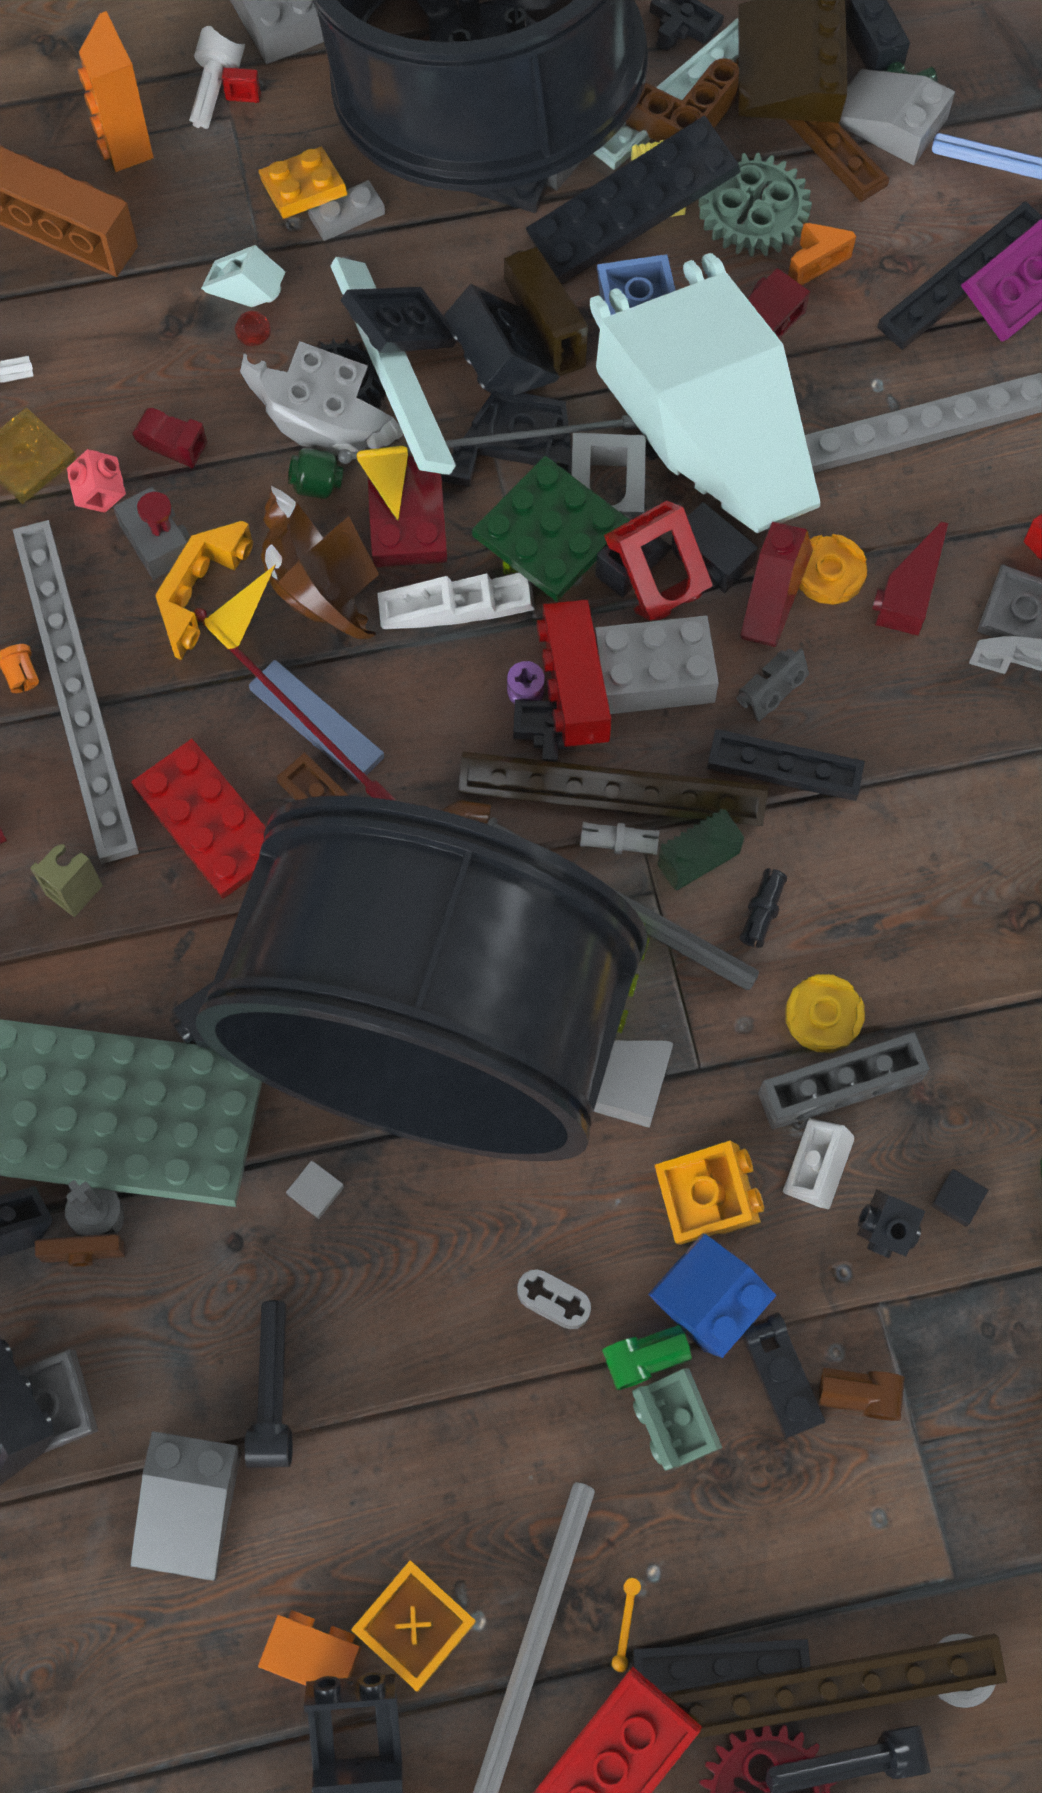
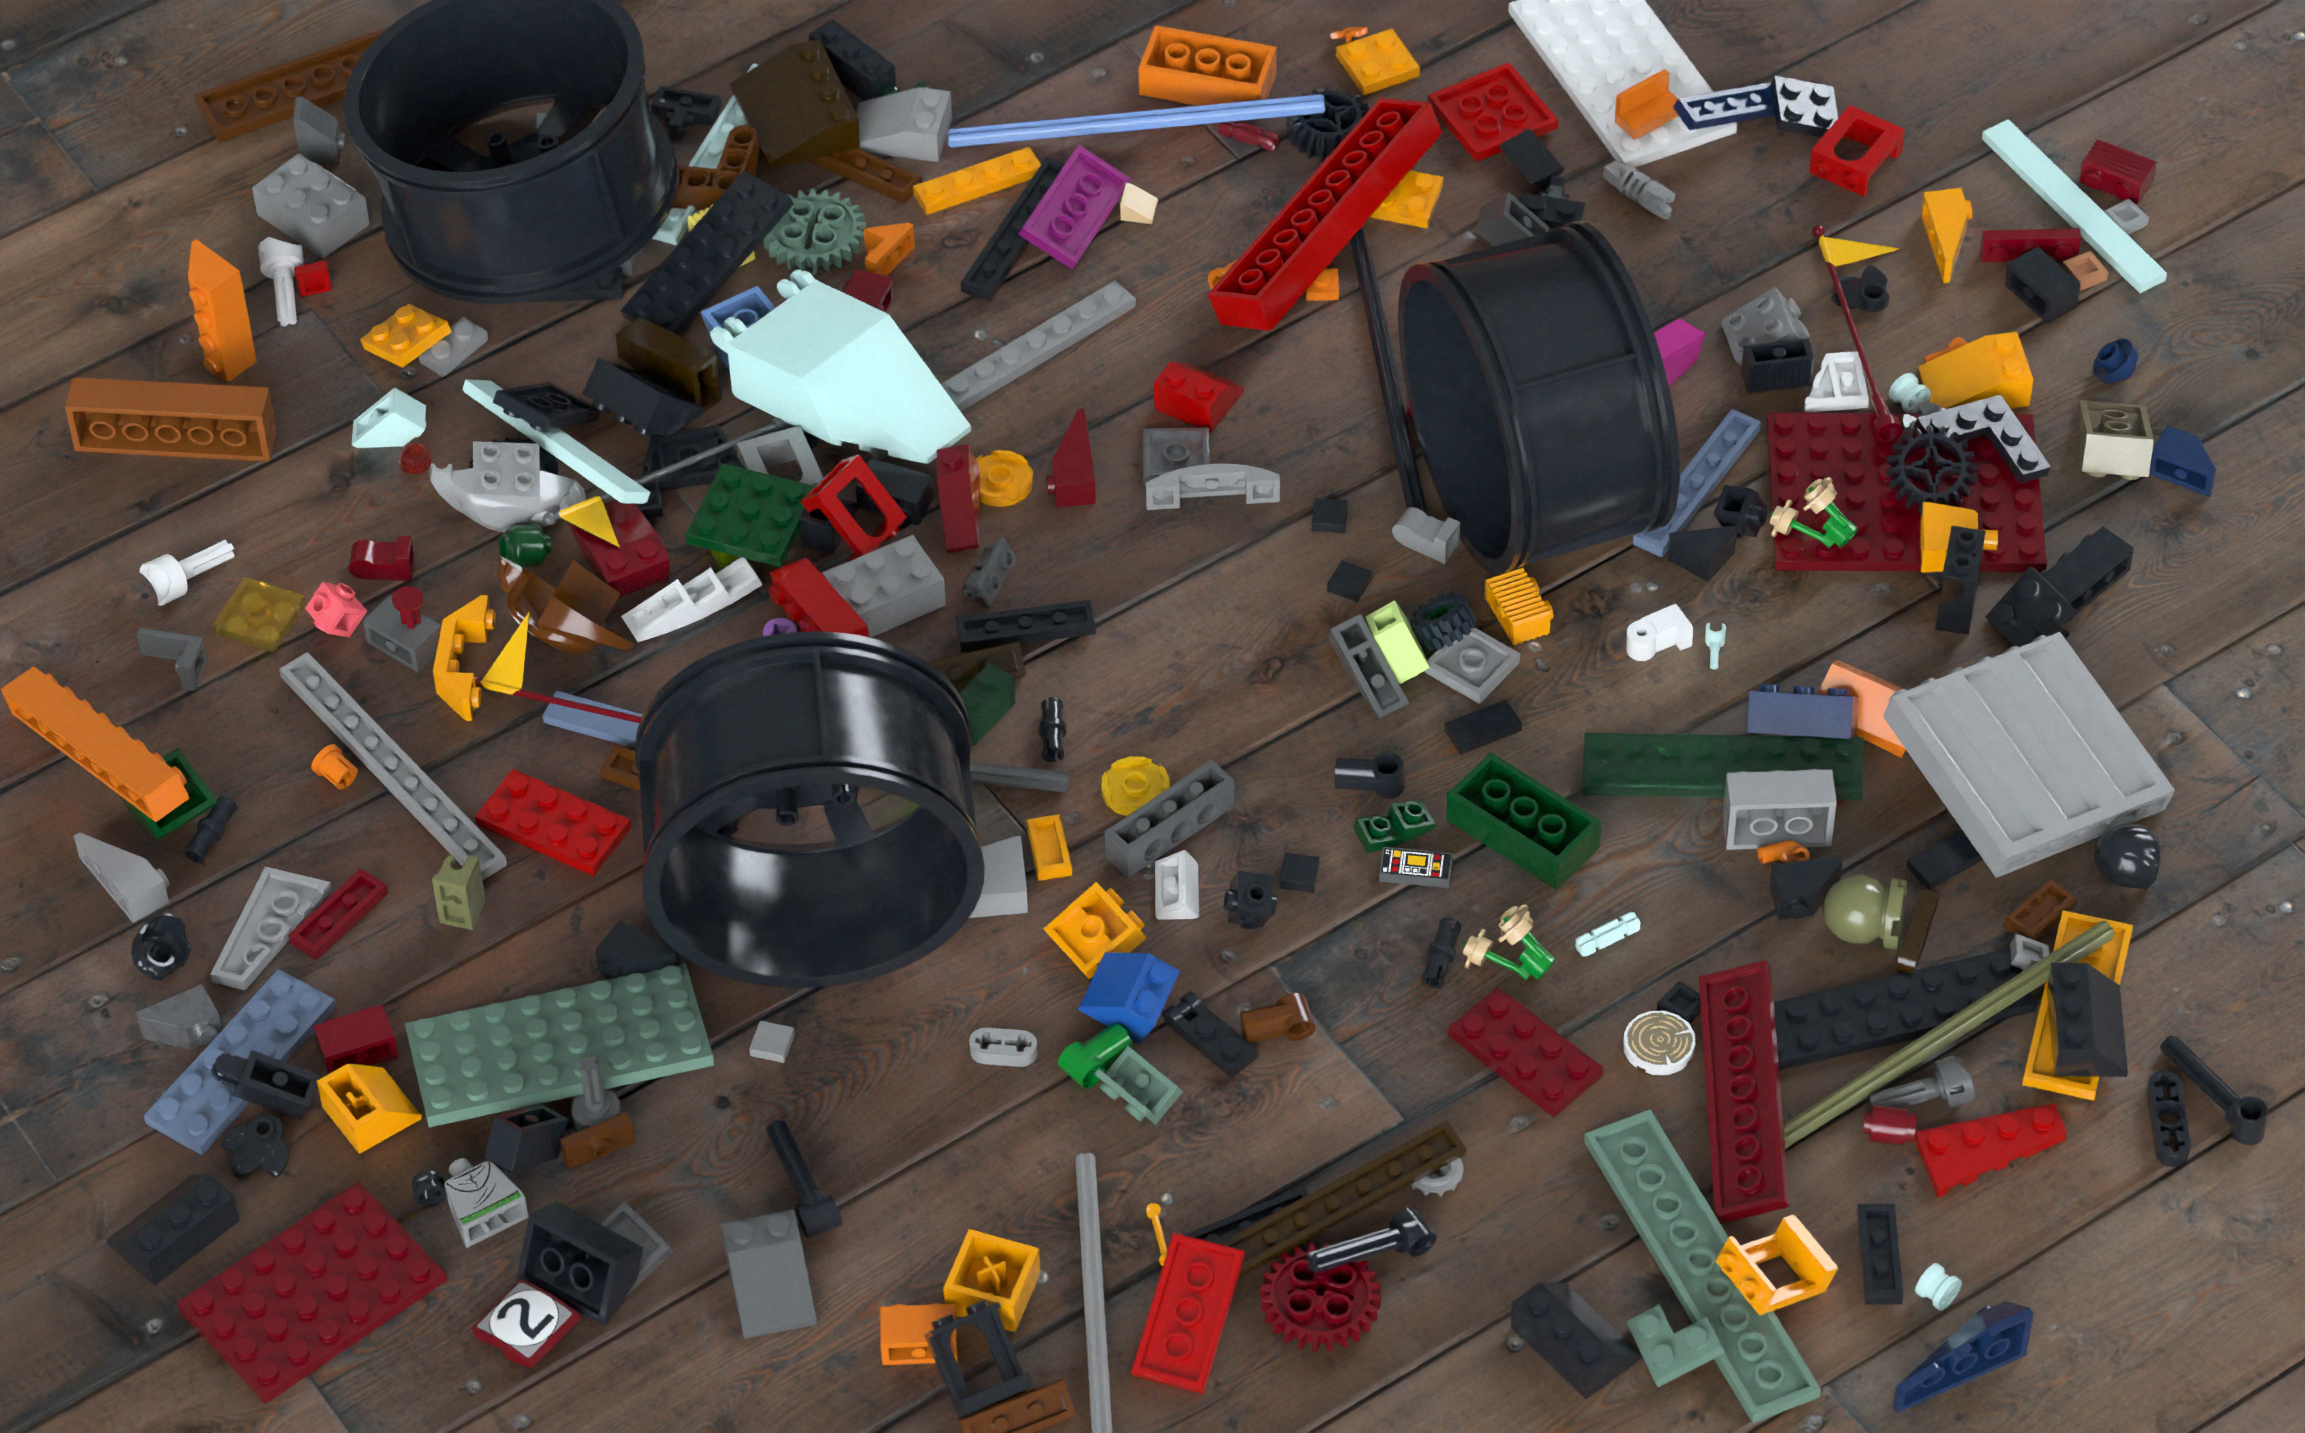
camera: 20 degrees left, 20 degrees down
(702, 1055) = (1048, 847): none -> light orange tile
(944, 202) = (976, 180): none -> light orange plate

